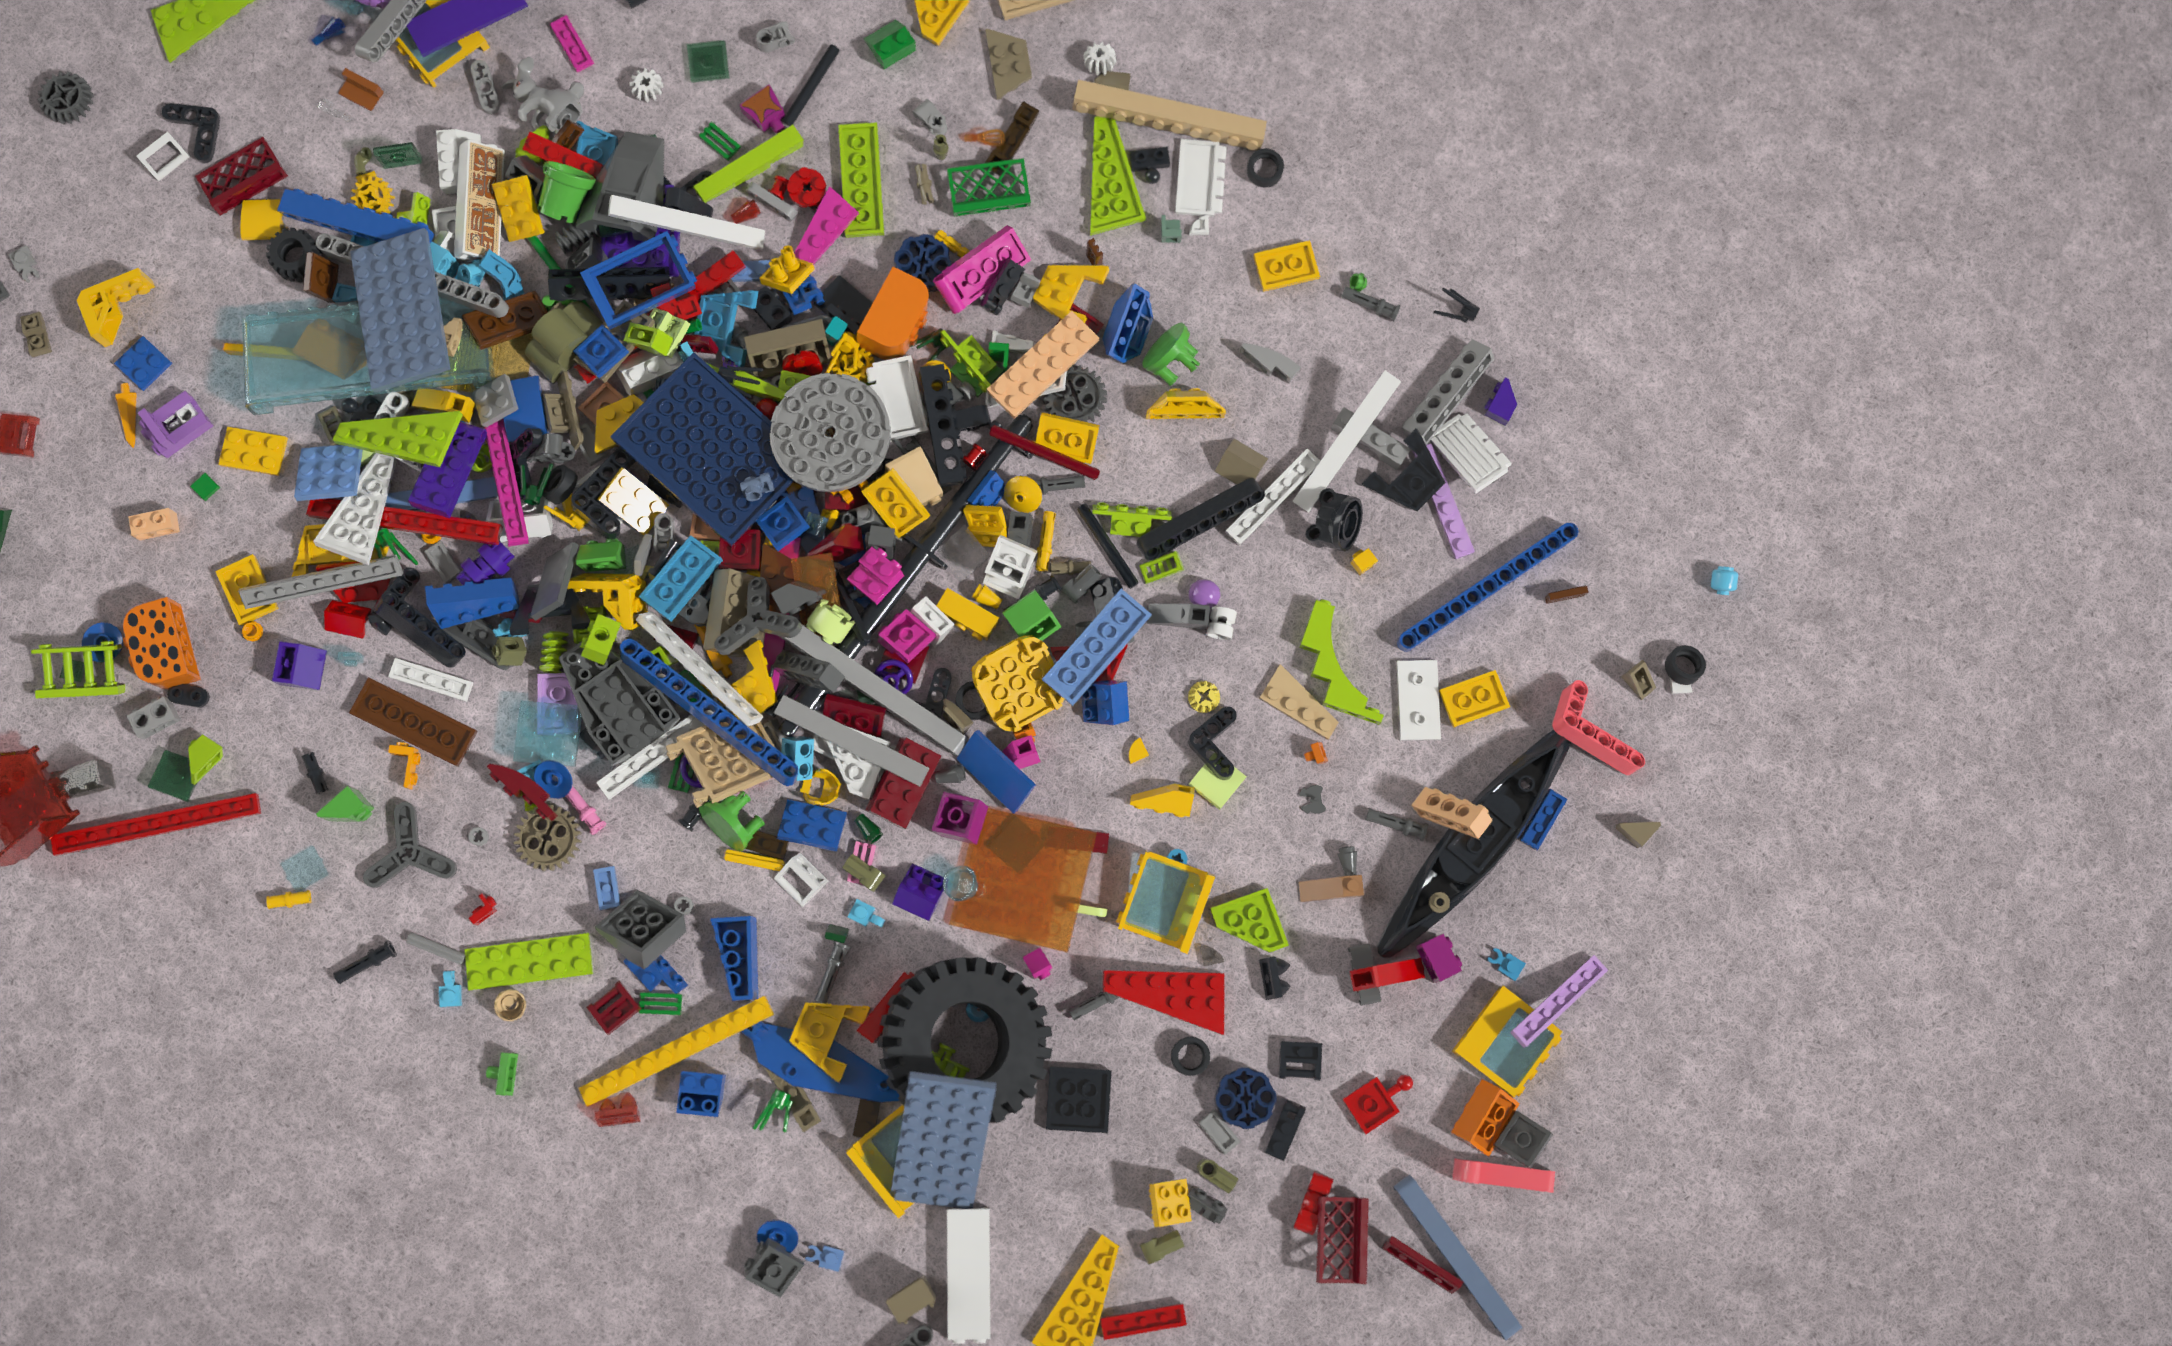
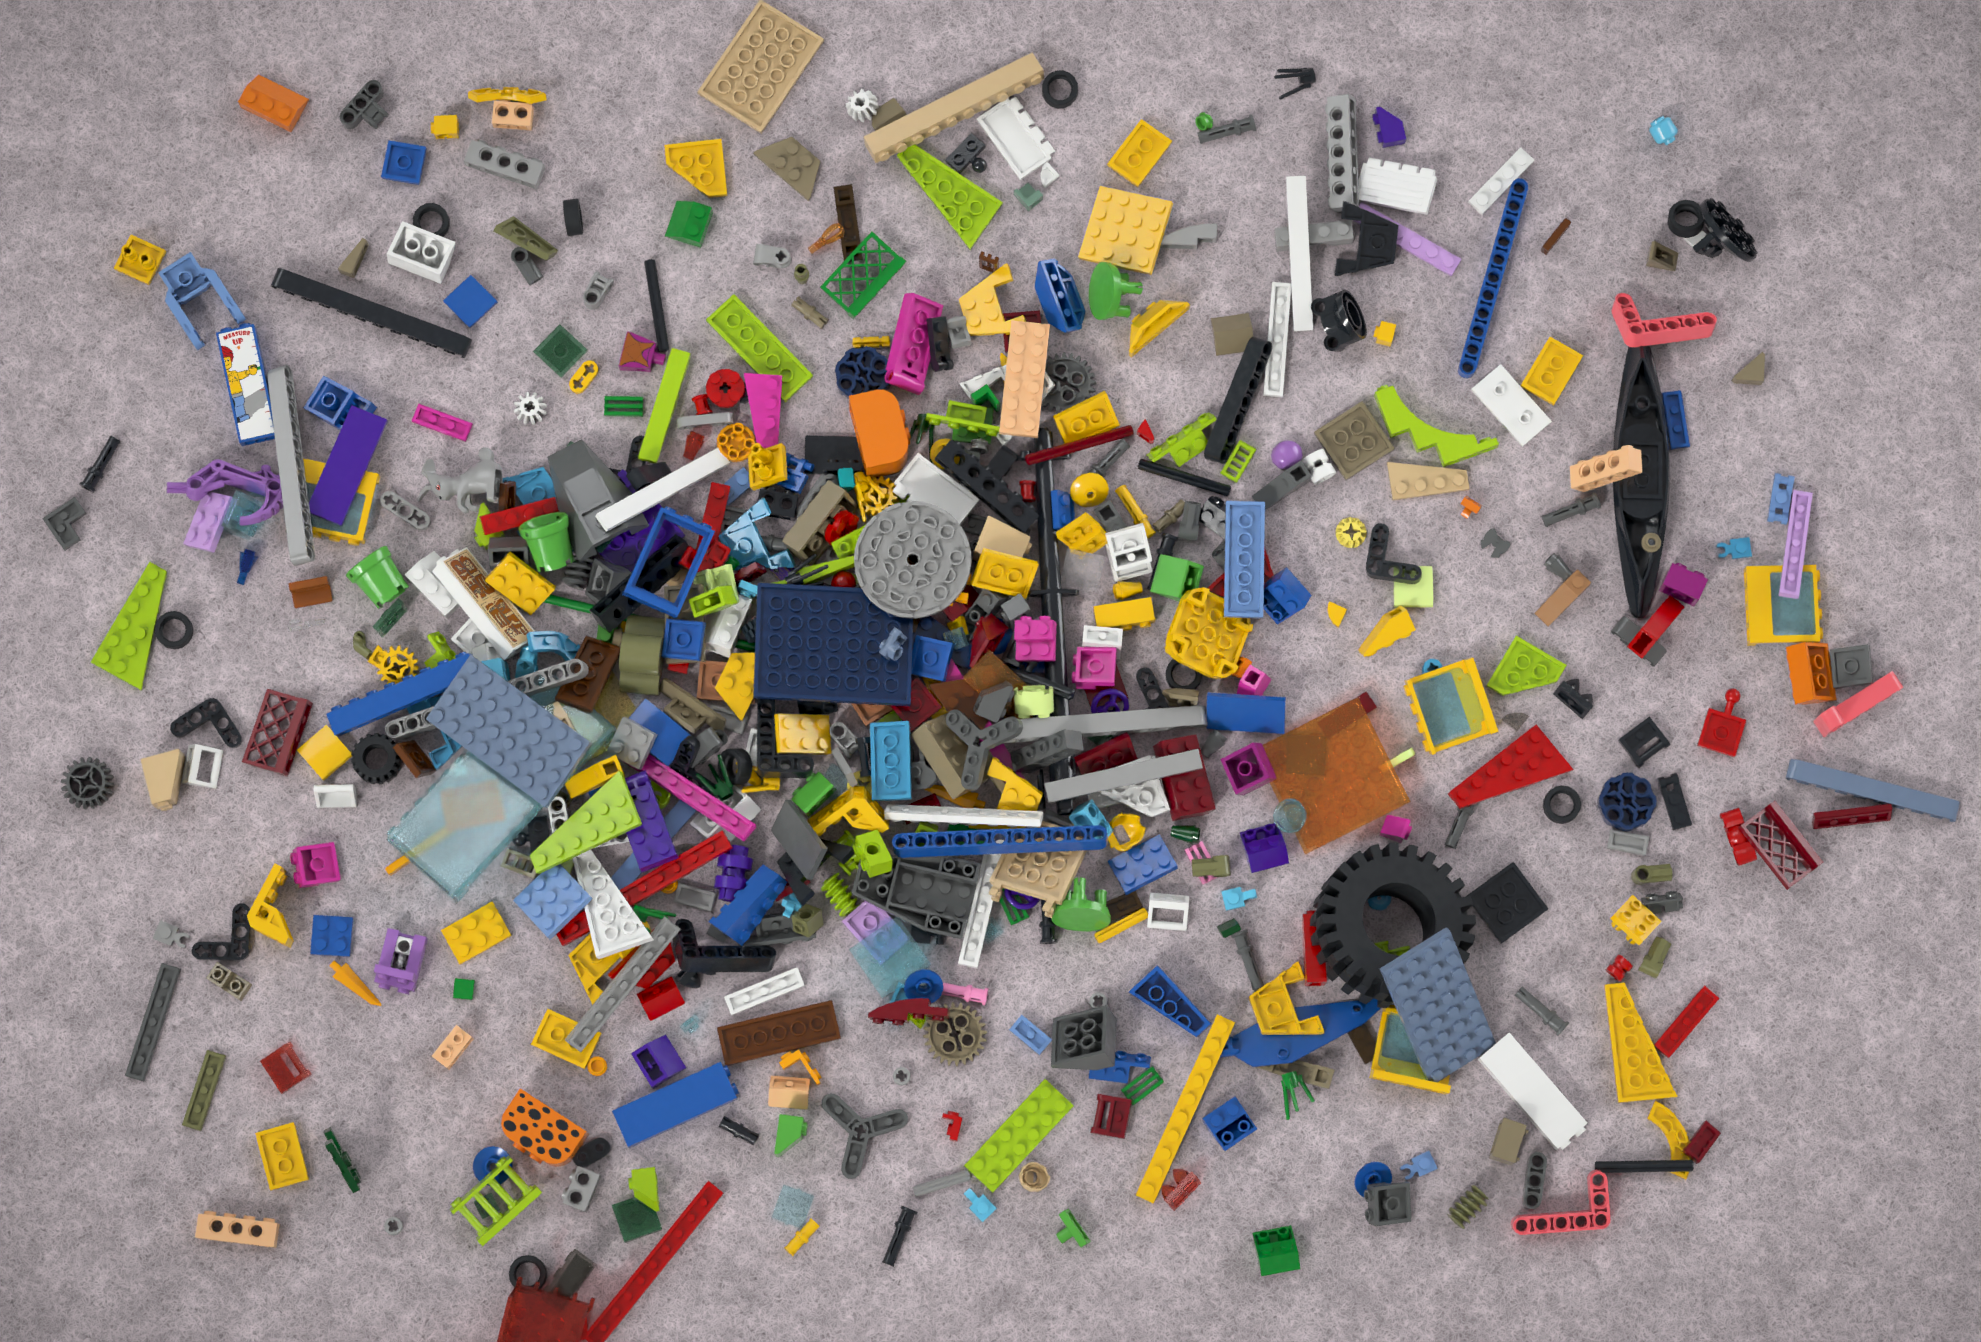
camera: 30 degrees left, 0 degrees up
(59, 309) = (230, 946): none -> black beam
(70, 752) = (525, 1259): none -> black tyre
(120, 138) = (164, 777): none -> tan slope
(177, 298) = (315, 865): none -> dark pink plate
(238, 258) = (335, 796): none -> white tile
(241, 47) = (169, 616): none -> black tyre
(283, 711) = (675, 1104): none -> blue brick
(380, 775) = (789, 1092): none -> light nougat panel
(415, 116) = (378, 577): none -> bright green piece
(650, 1229) = (1276, 1250): none -> green slope
(707, 90) = (580, 374): none -> yellow beam
(780, 234) = (735, 442): none -> light orange tile
(834, 1325) = (1469, 1204): none -> olive piece
(1034, 1222) = (1549, 1017): none -> dark grey pin
(1106, 484) = (1145, 432): none -> red slope
(1125, 1230) = (1619, 968): none -> red wheel
(1224, 315) = (1125, 230): none -> yellow plate
(1267, 626) = (1354, 440): none -> dark tan plate
(1558, 516) = (1501, 181): none -> white plate
(1577, 953) = (1780, 498): none -> medium blue plate
(1706, 701) = (1724, 233): none -> black bracket

